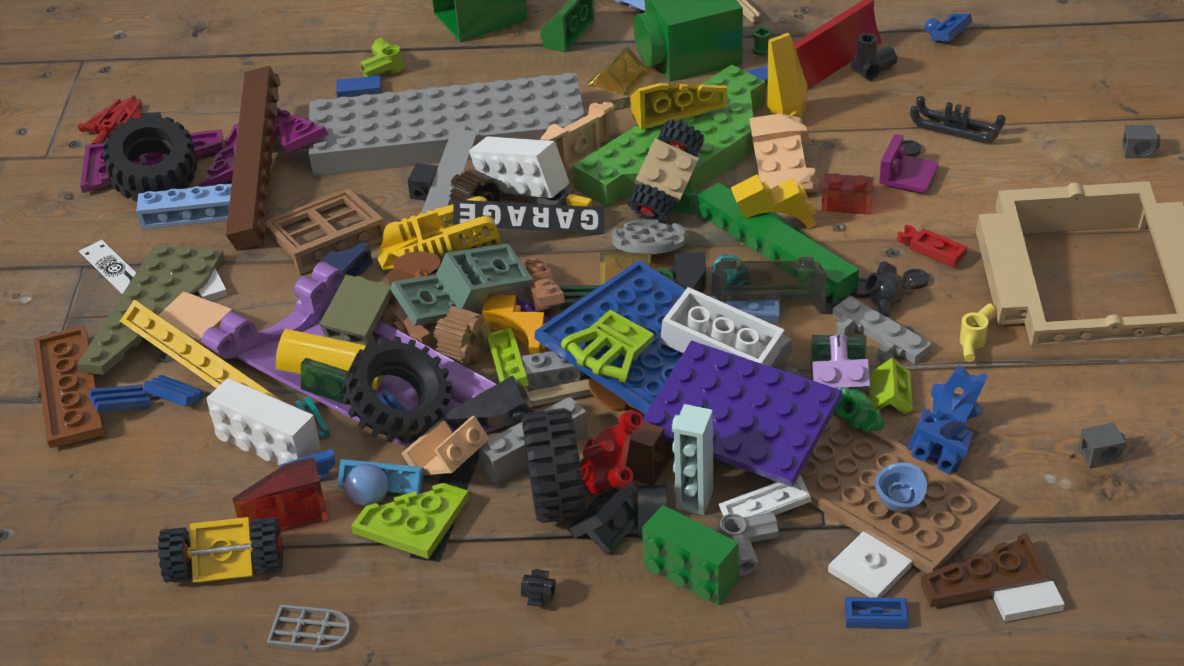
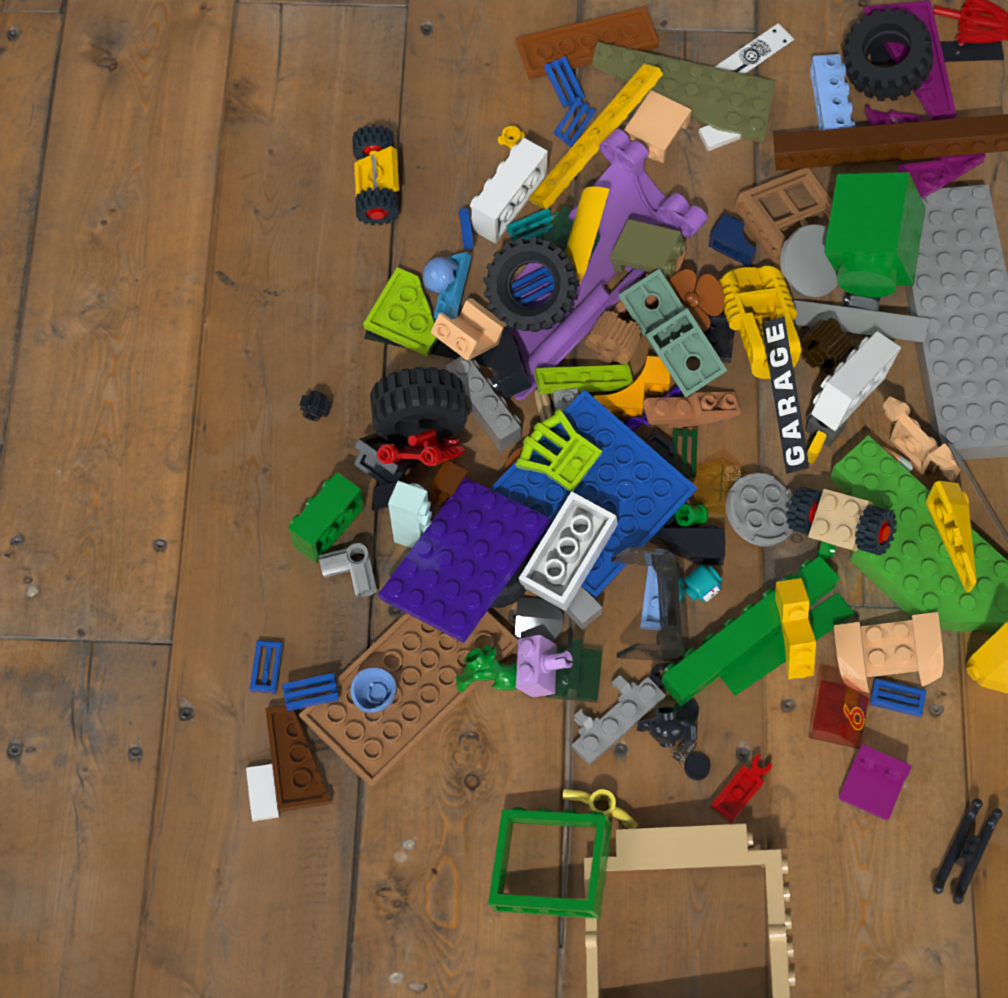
camera: 90 degrees right, 25 degrees up
(182, 442) = (511, 132): none -> yellow plate
(288, 493) = (425, 216): clear red slope -> none
(301, 621) = (311, 243): light grey window -> none
(366, 144) = (875, 232): none -> green container
(378, 204) = (806, 263): none -> light grey tile
(772, 498) = (384, 566): white tile -> none
(824, 148) = (874, 701): none -> blue tile
(869, 566) = (315, 660): white plate -> none
(891, 385) = (529, 716): lime panel -> none
(899, 537) = (311, 691): none -> blue tile
(912, 148) = (924, 795): black piece -> none
(943, 433) = (441, 741): blue hips -> none
(1049, 393) = (547, 905): none -> green window
(1102, 445) = (432, 894): dark grey brick -> none

